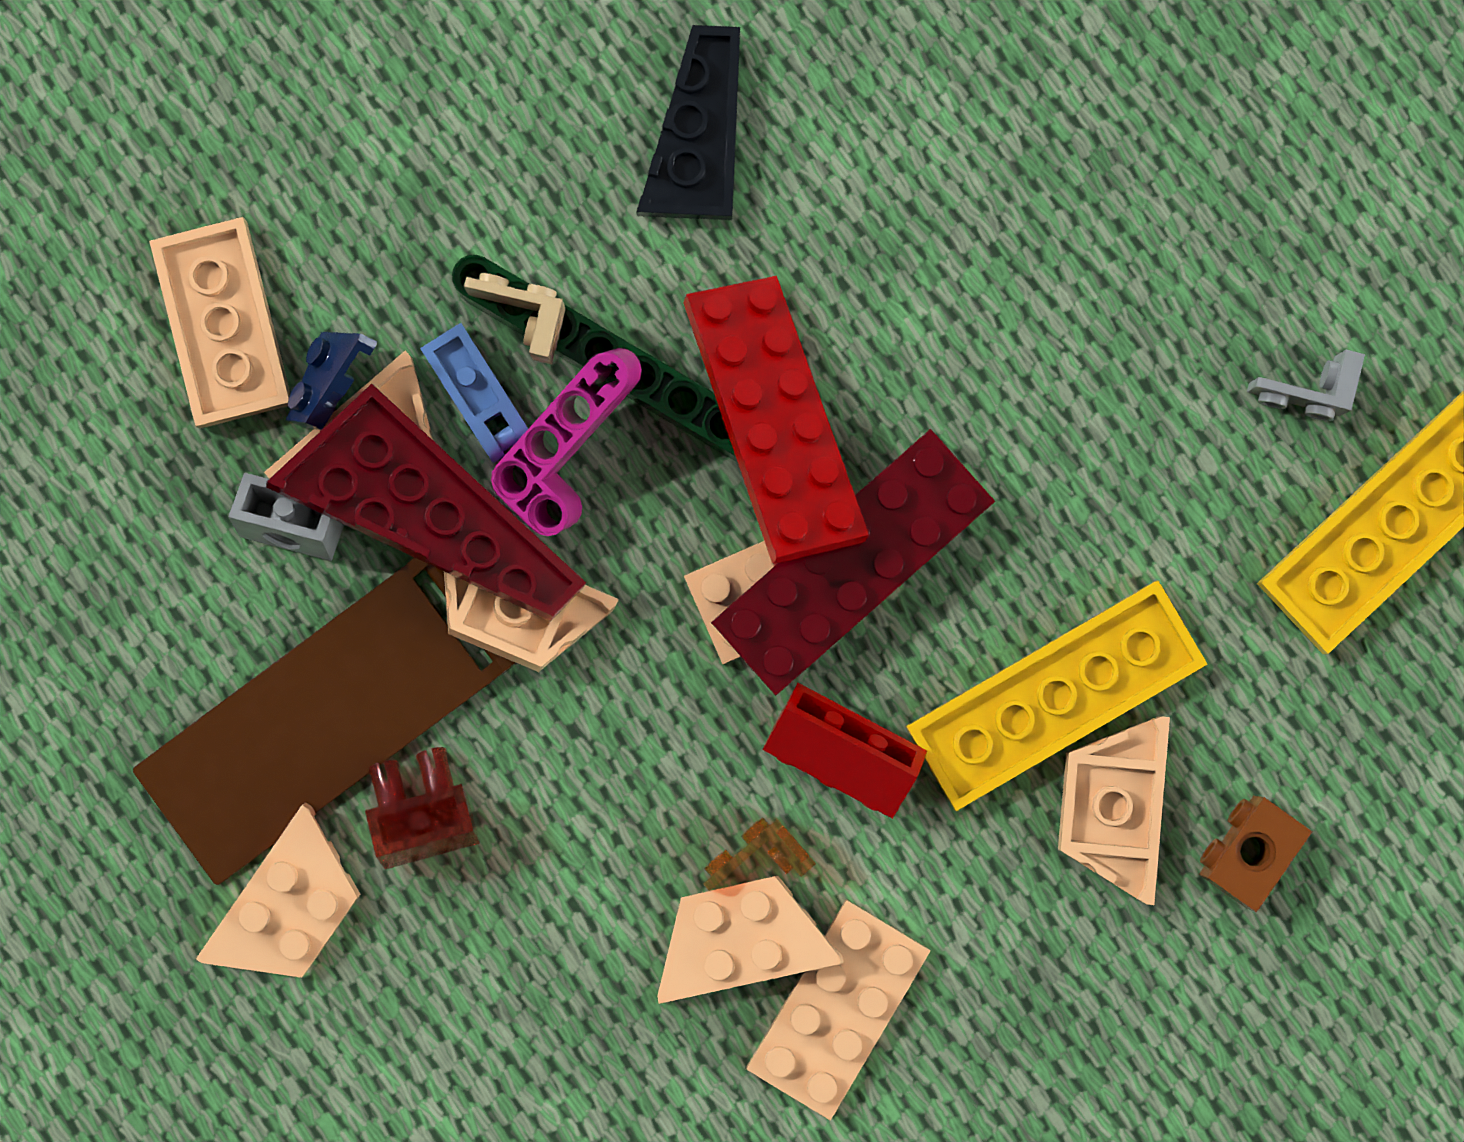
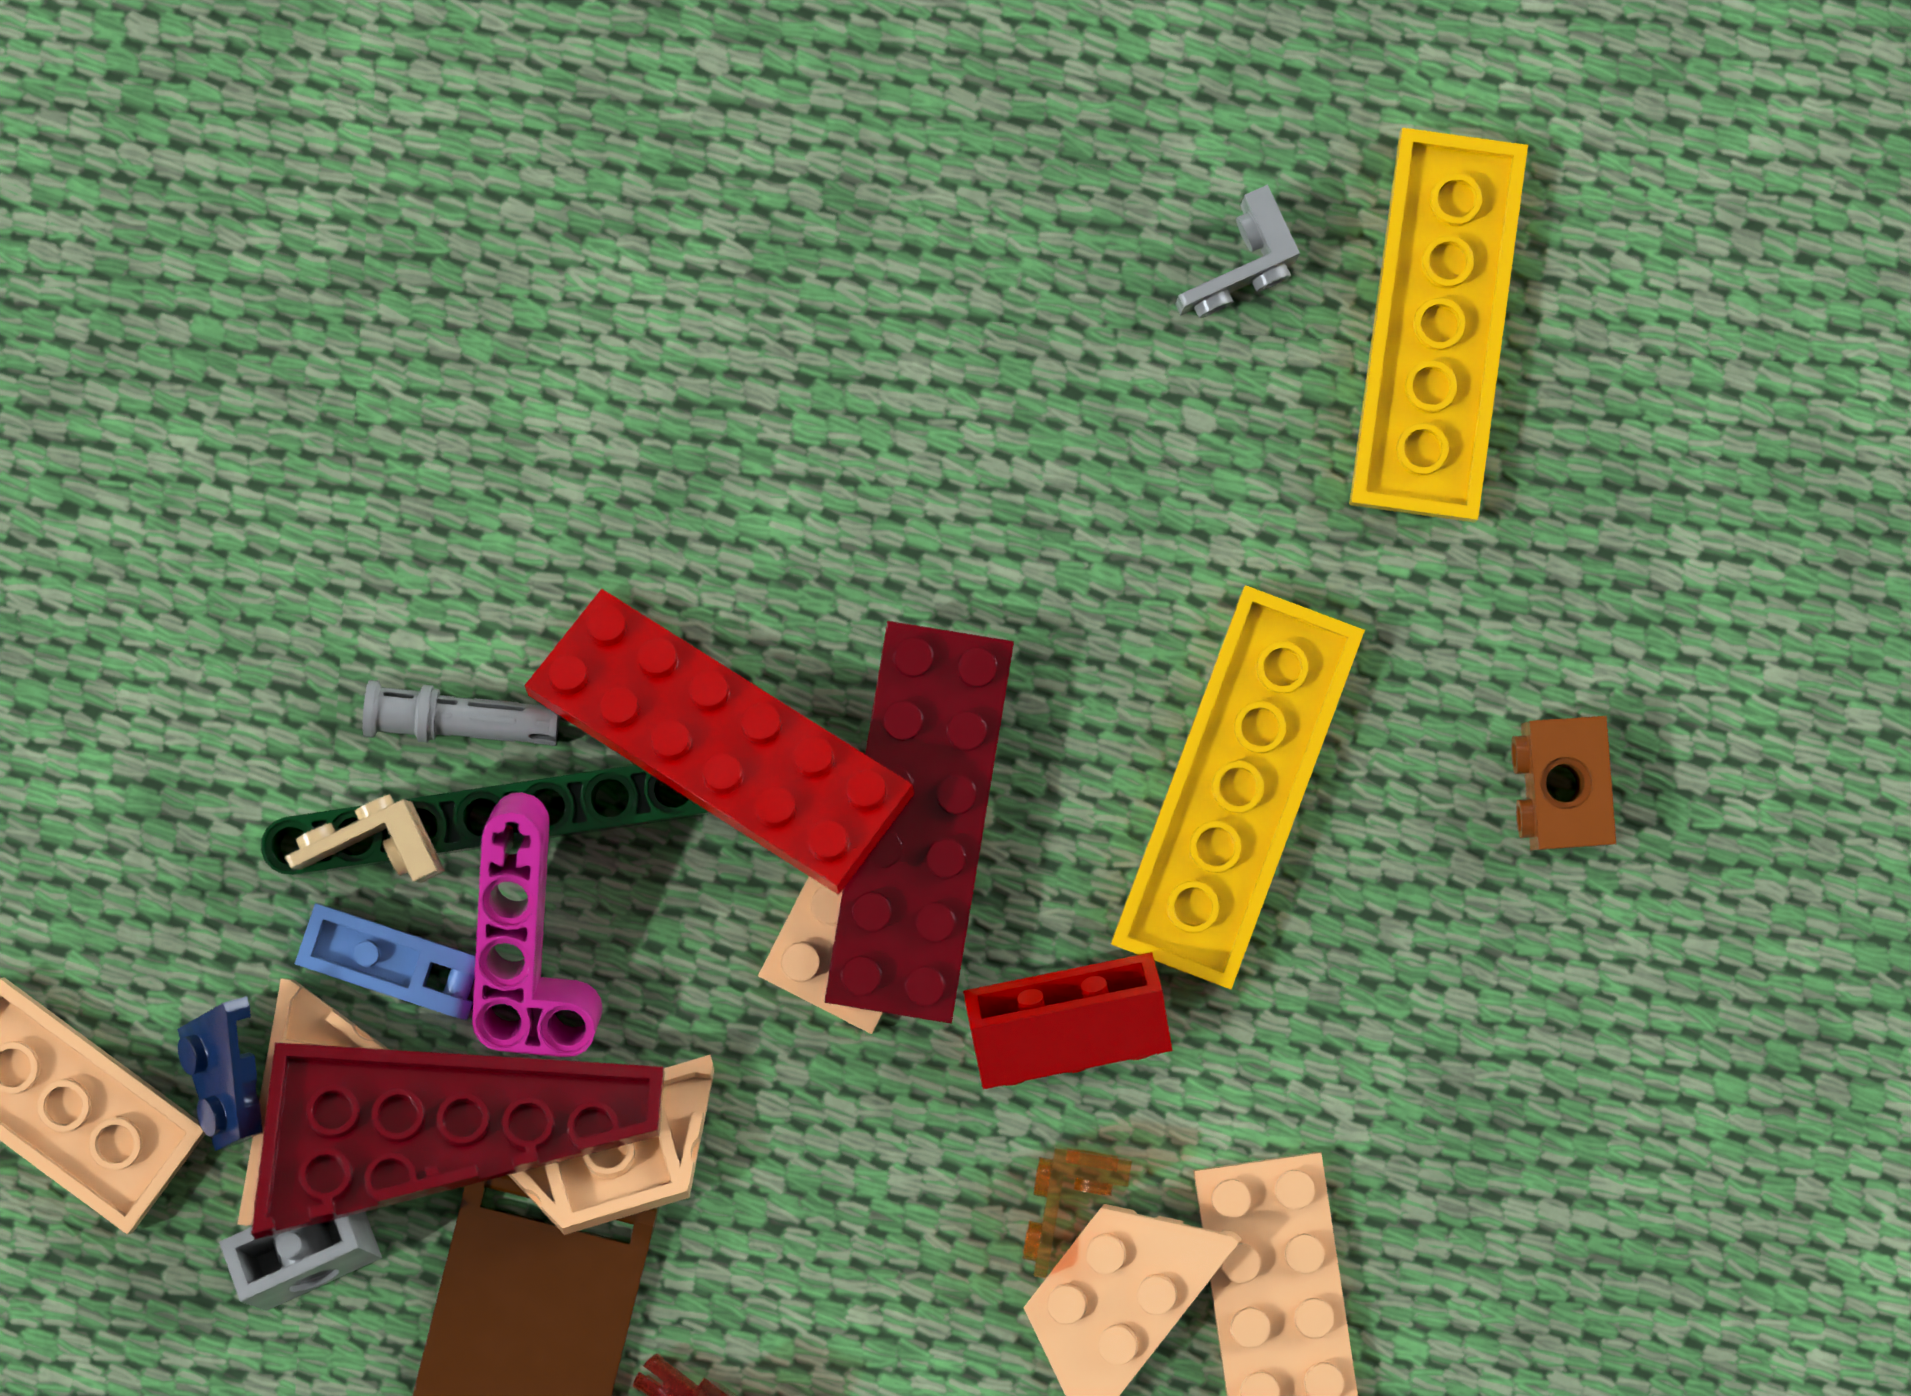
camera: 35 degrees left, 0 degrees up
(617, 268) = (432, 714): none -> light grey pin
(697, 142) = (410, 521): black wing -> none
(1116, 806) = (1390, 849): light nougat wing -> none

